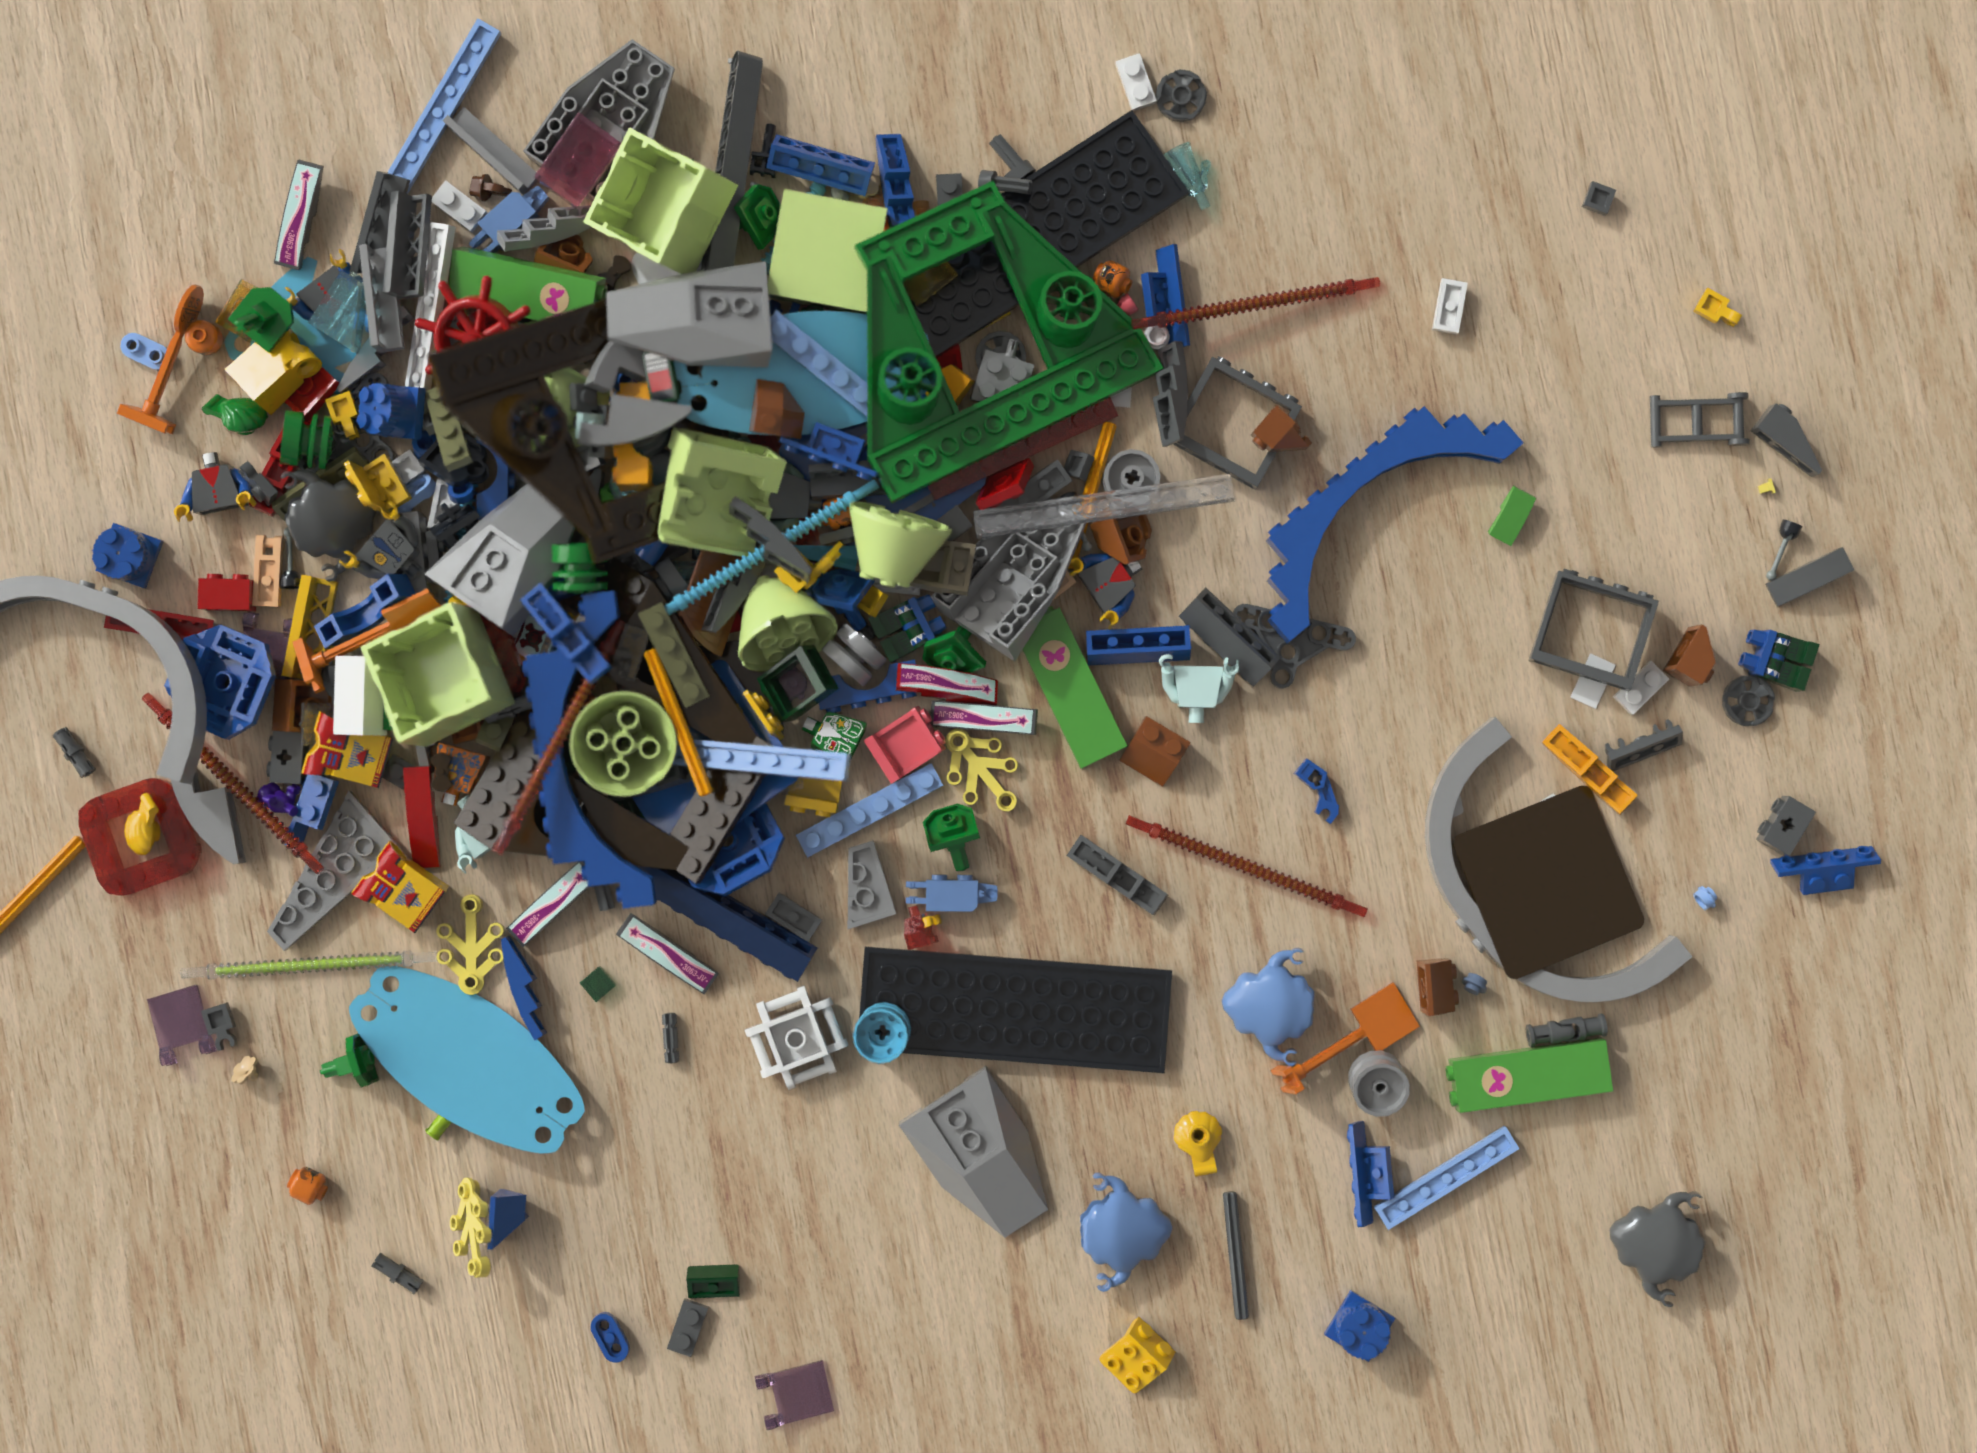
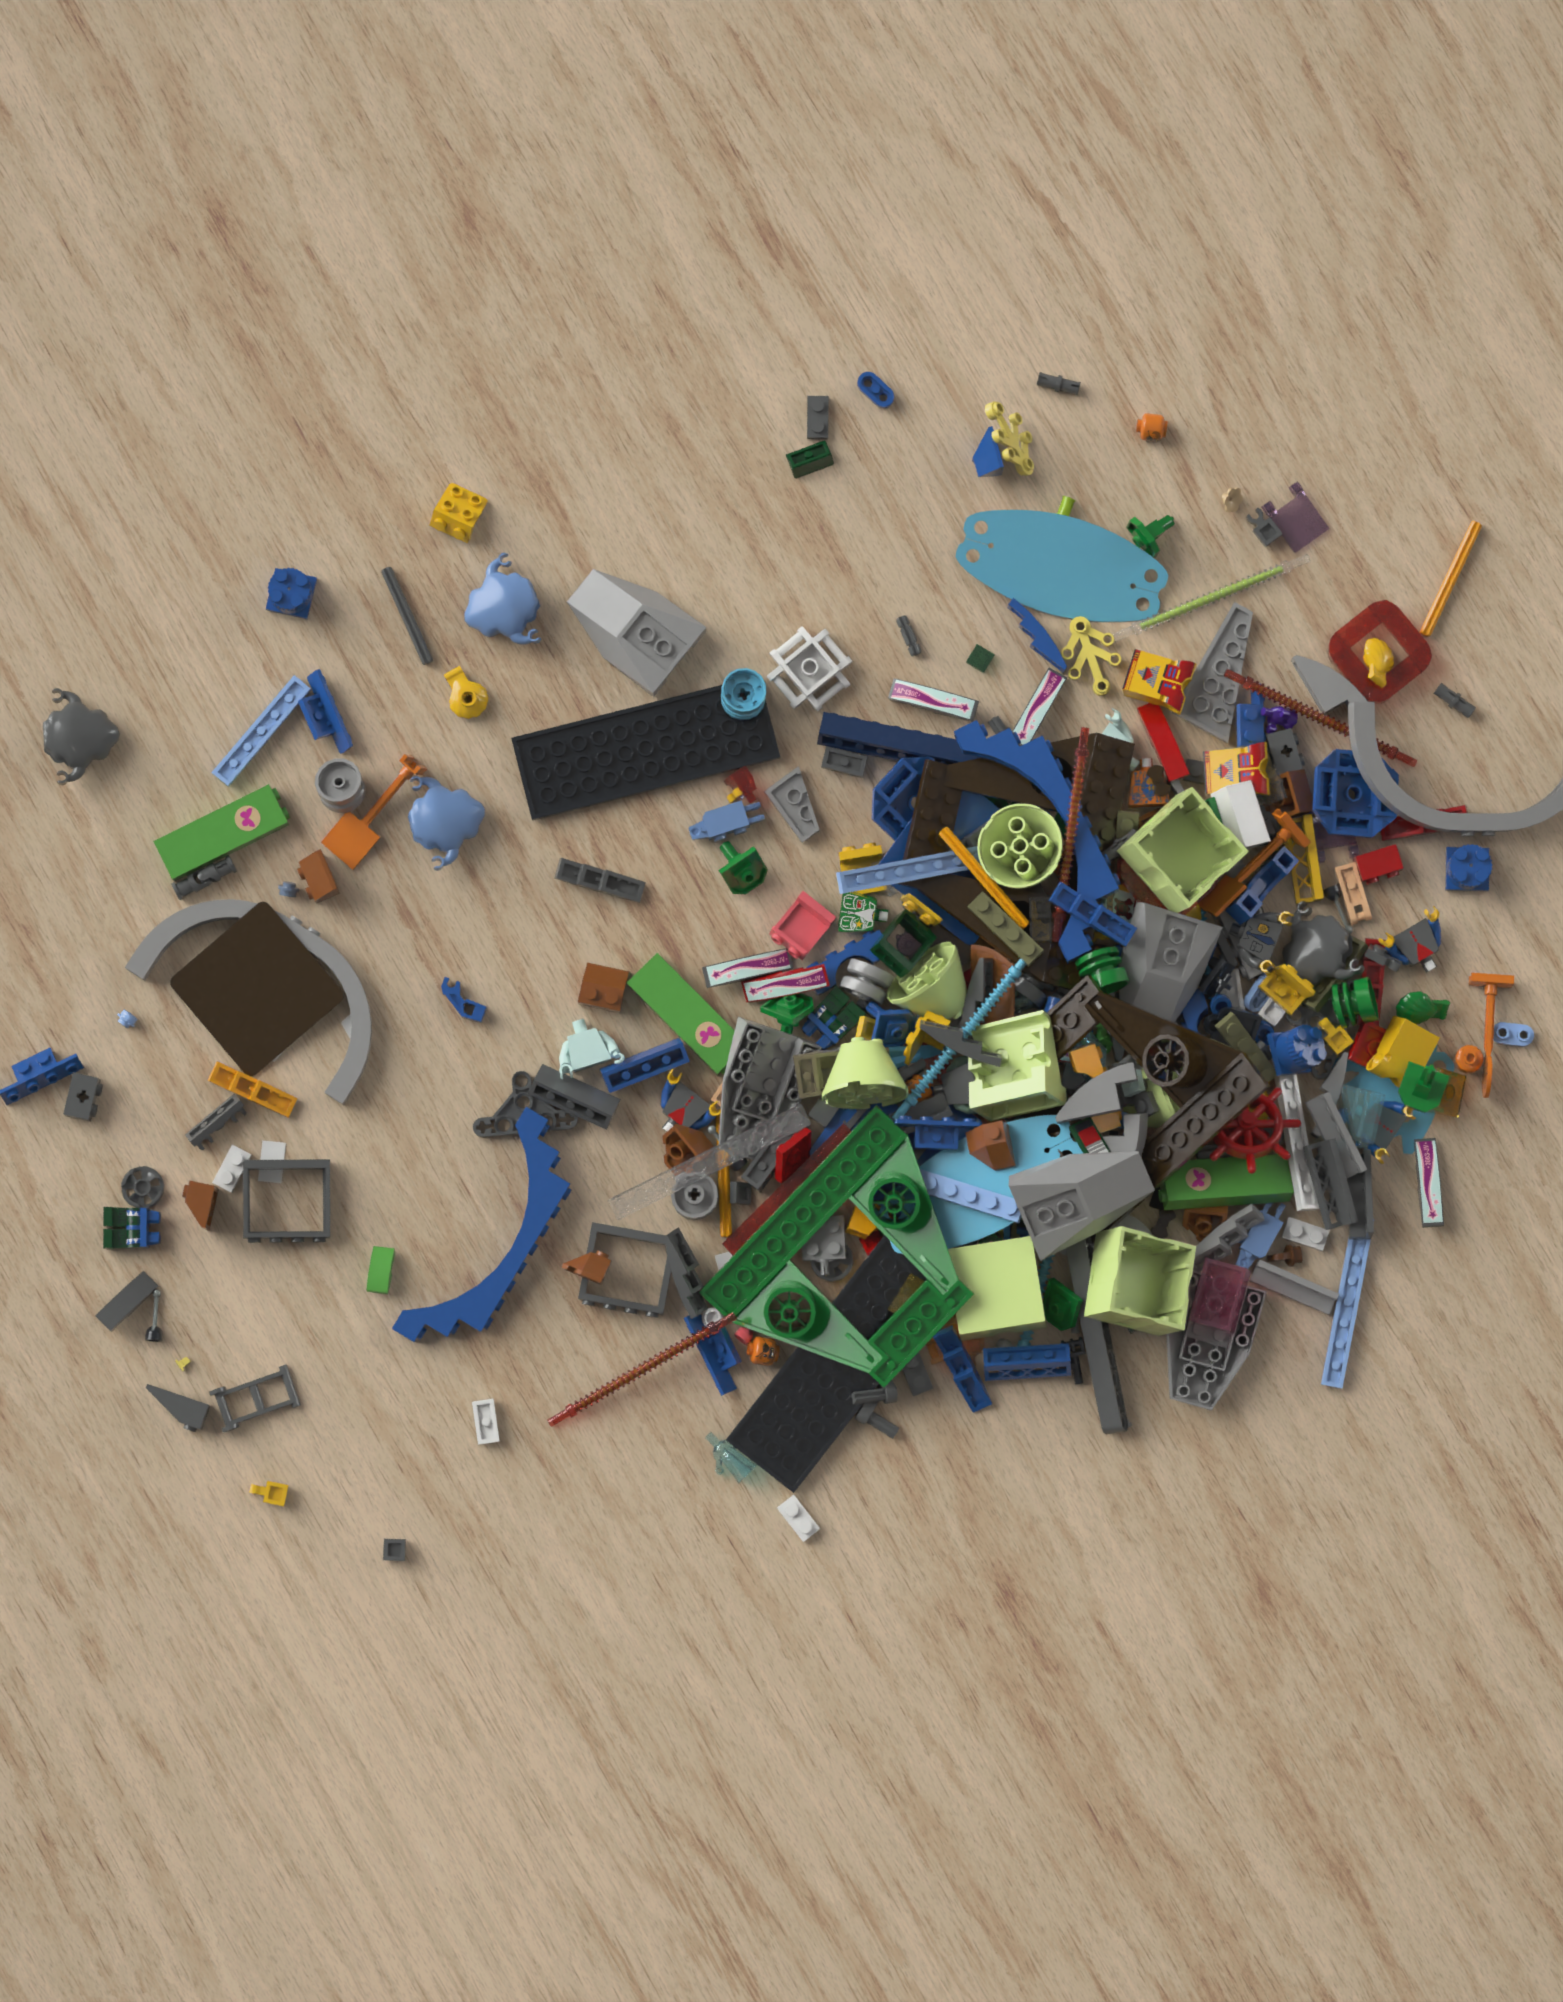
camera: 160 degrees right, 5 degrees down
(798, 1393) = (714, 395): flag -> none
(869, 810) = (813, 865): light blue plate -> none
(978, 766) = (738, 928): light yellow plant -> none
(1180, 95) = (758, 1520): dark grey piece -> none
(1336, 901) = (419, 918): clear red hose -> none

